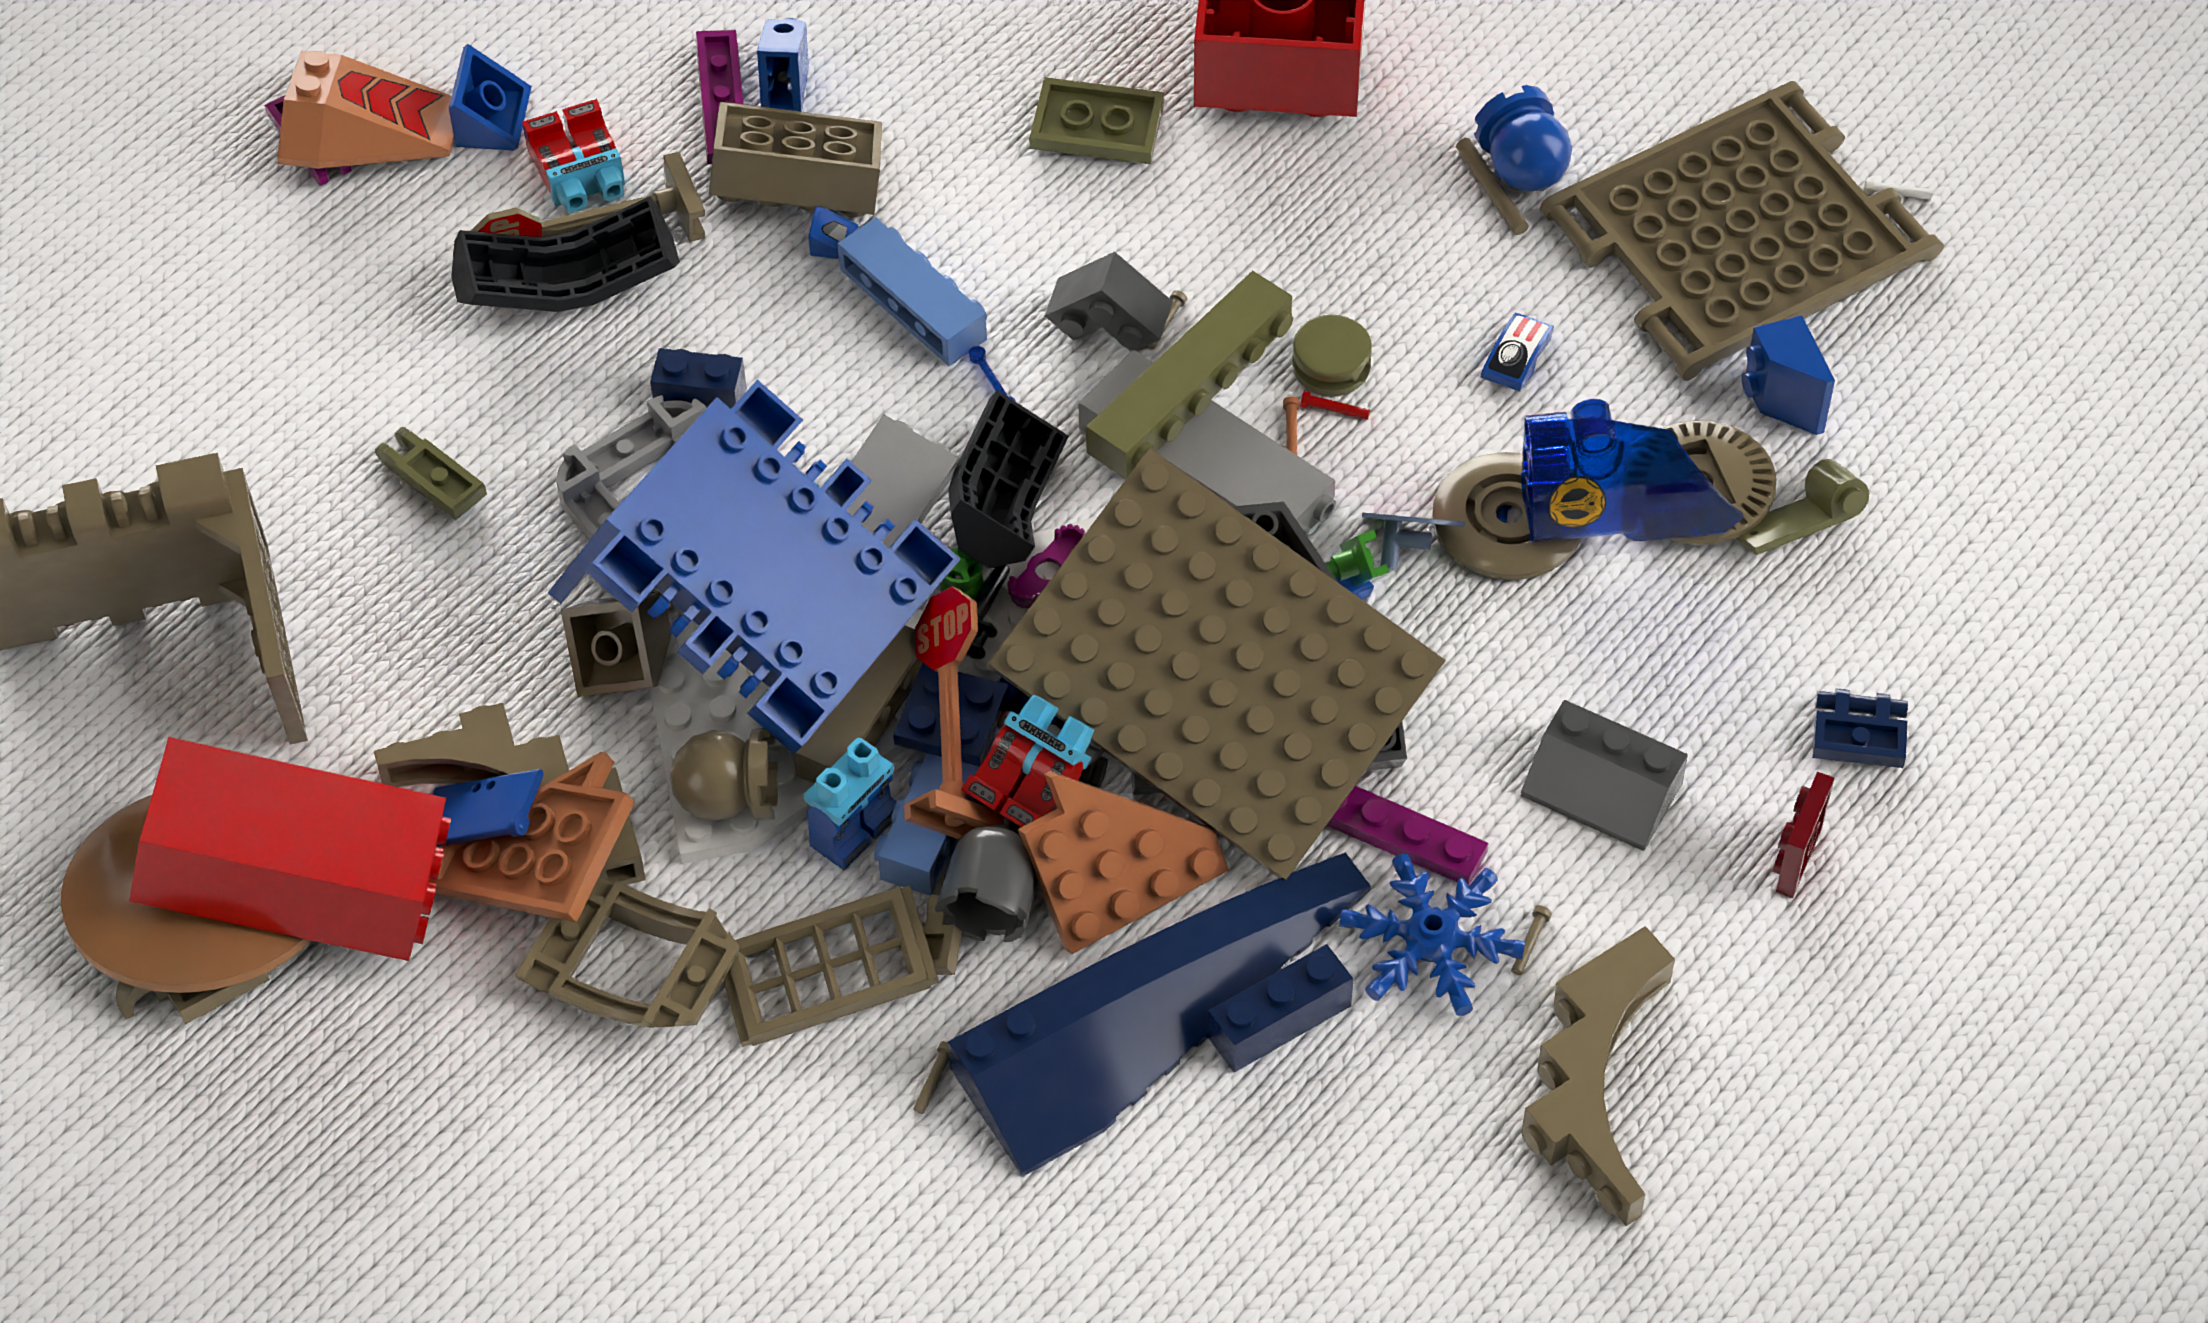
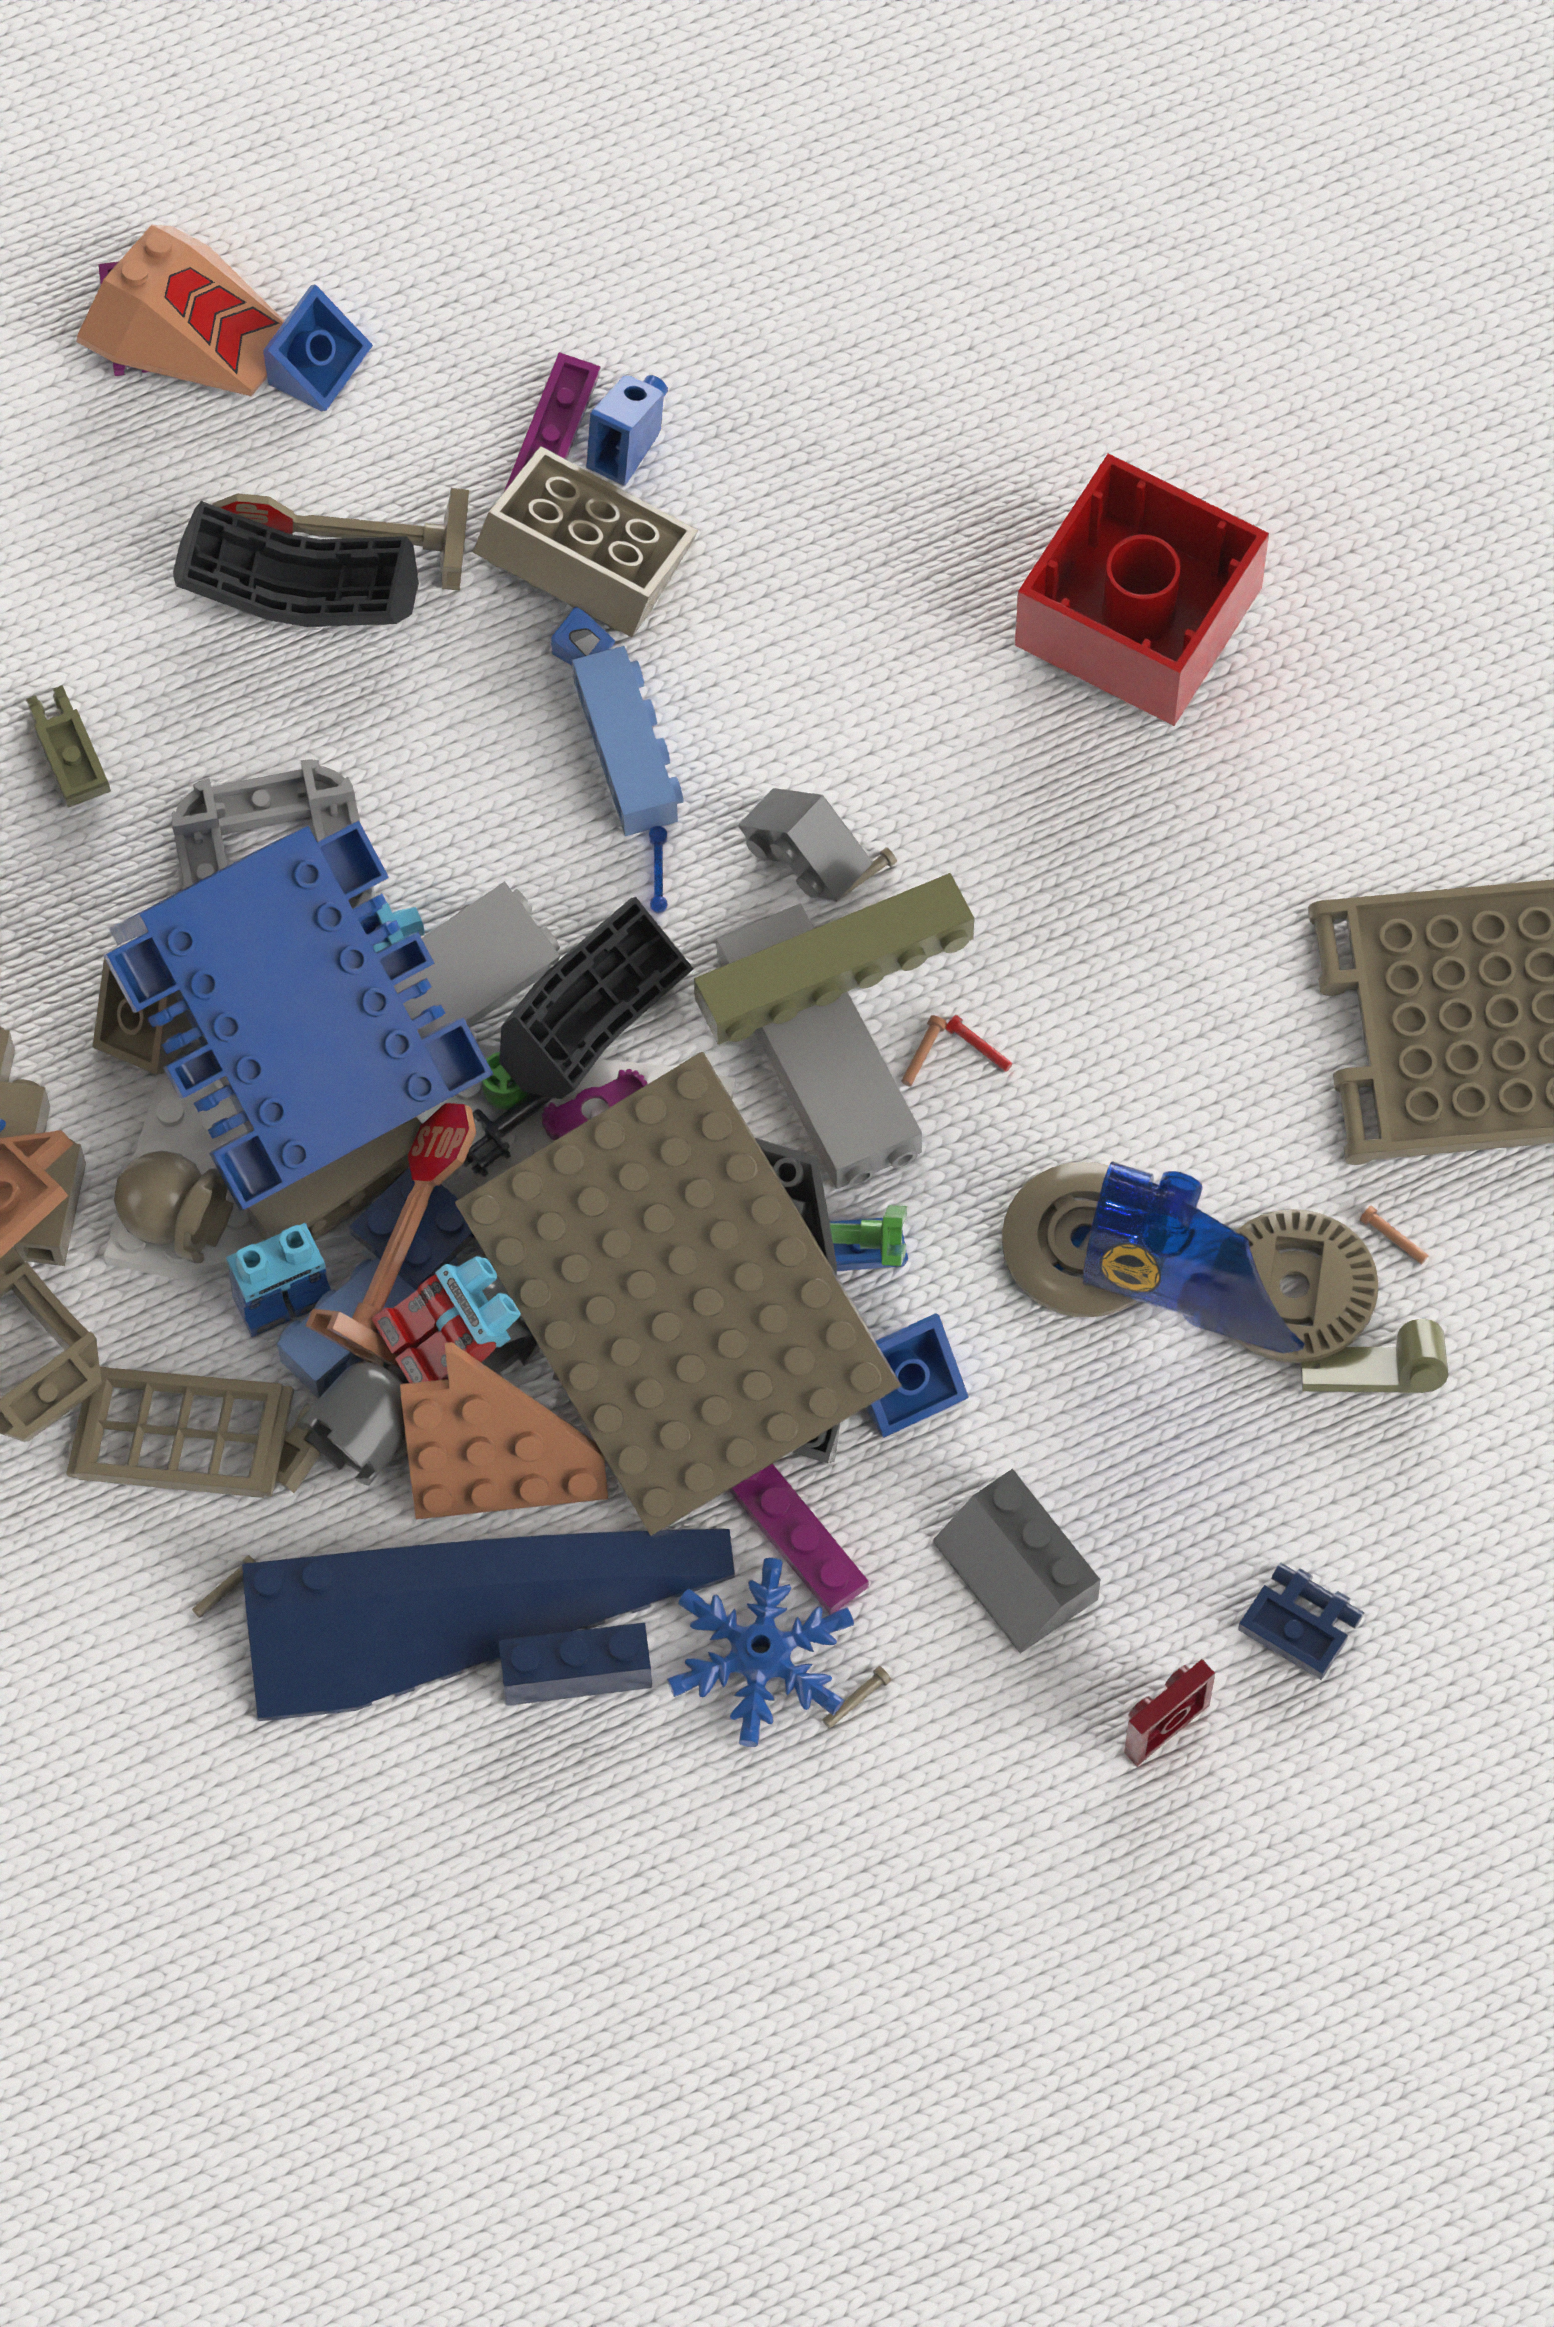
camera: 25 degrees right, 10 degrees up
(579, 171) = (371, 466): hips -> none
(696, 375) = (375, 764): dark blue brick -> none
(1097, 120) = (911, 620): olive plate -> none
(1331, 355) = (1003, 987): olive head -> none
(1395, 537) = (965, 1212): sand blue shield -> none
(1454, 677) = (926, 1371): none -> blue slope
(1492, 186) = (1274, 861): dark tan bar -> none
(1517, 351) = (1191, 1061): slope -> none
(1524, 139) = (1324, 829): blue tile -> none
(1573, 1116) = (882, 1794): dark tan arch -> none
(1754, 417) = (1394, 1235): none -> nougat piece
(1789, 375) = (1439, 1207): blue slope -> none

